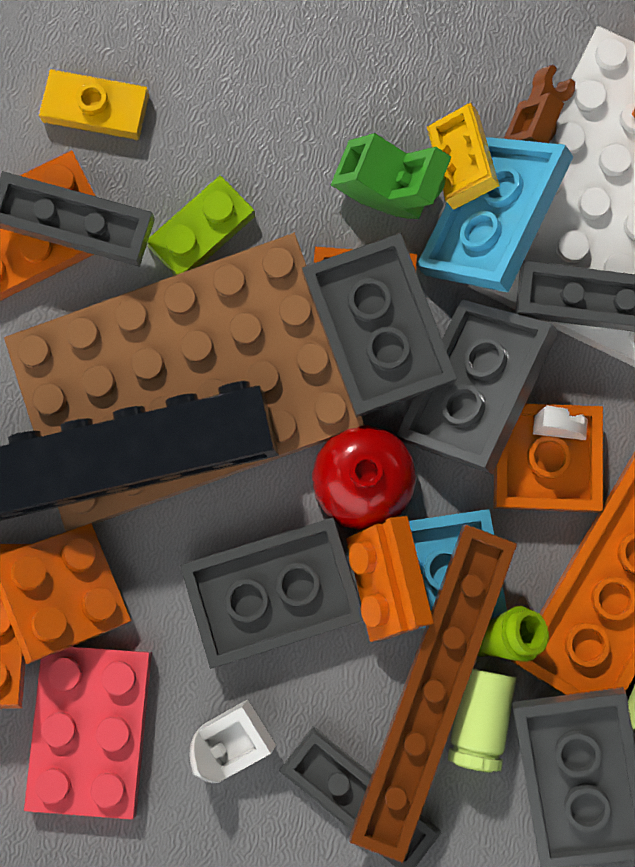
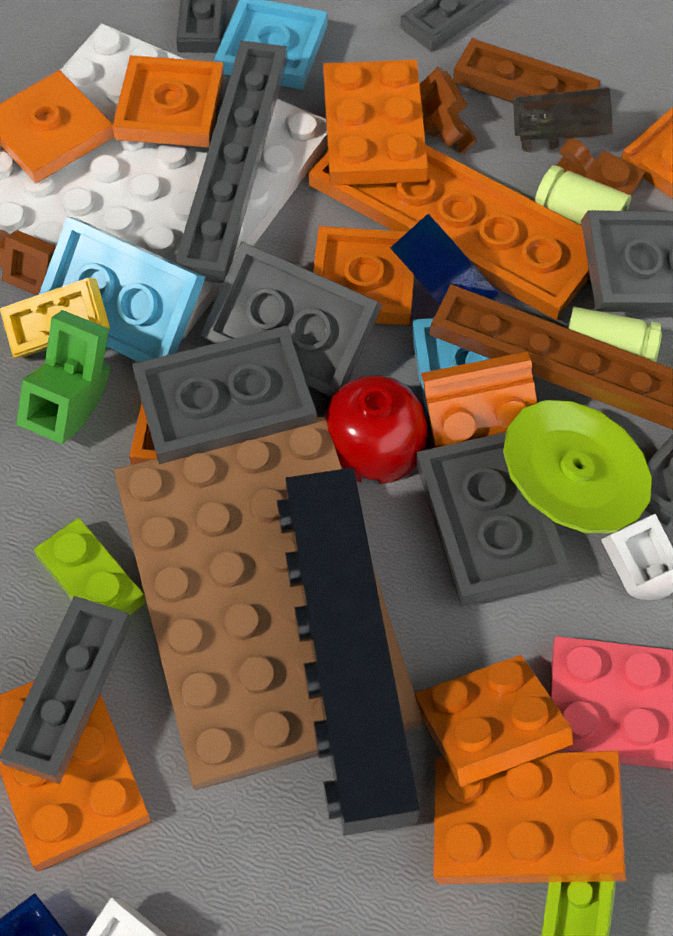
camera: 85 degrees left, 20 degrees down
(317, 676) = (577, 466): none -> lime piece
(515, 635) = (535, 293): lime cone -> none
(551, 537) = (439, 261): none -> clear blue slope
(557, 423) = (334, 253): white tile -> none

